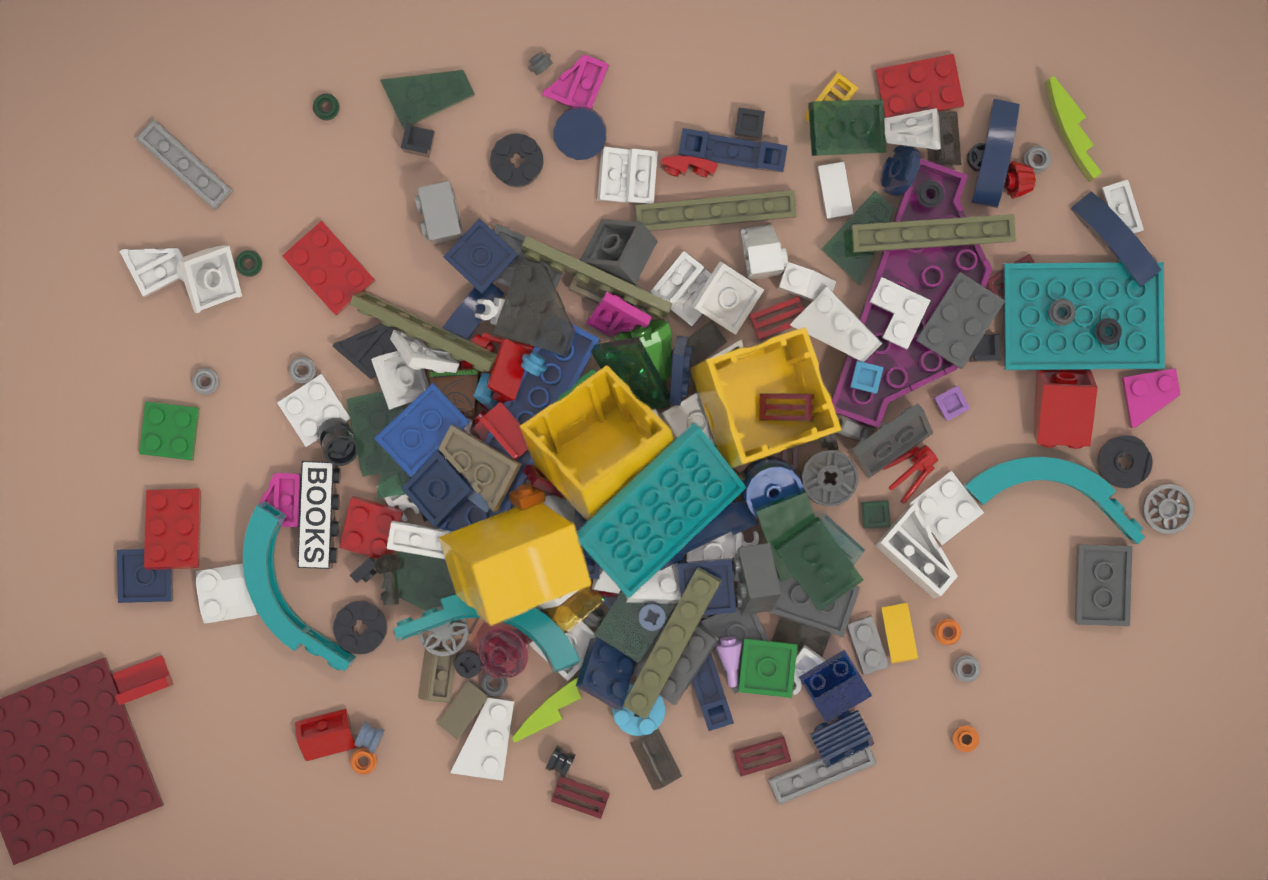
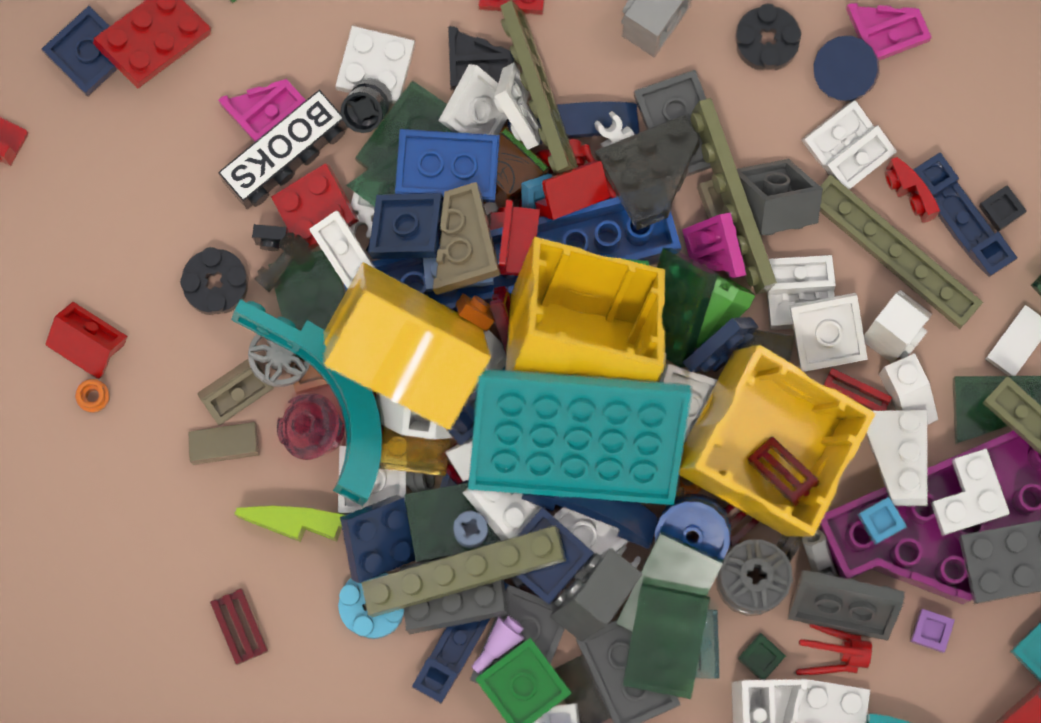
camera: 45 degrees right, 10 degrees down
(223, 594) = (136, 135): white slope -> none
(268, 598) = (167, 169): teal arch -> none
(294, 366) = (402, 13): light grey plate -> none
(369, 737) = (119, 380): sand blue wheel -> none
(473, 660) = (272, 411): black wheel -> none
(481, 256) = (653, 78): dark blue plate -> none
(488, 689) = (263, 450): dark grey plate -> none
(488, 741) = (213, 493): white wing -> none
(533, 363) = (602, 207): dark azure plate -> none
(560, 761) = (256, 575): black wheel -> none
(656, 759) = (339, 665): clear smoke slope -> none
(987, 349) = (1012, 615): black panel -> none

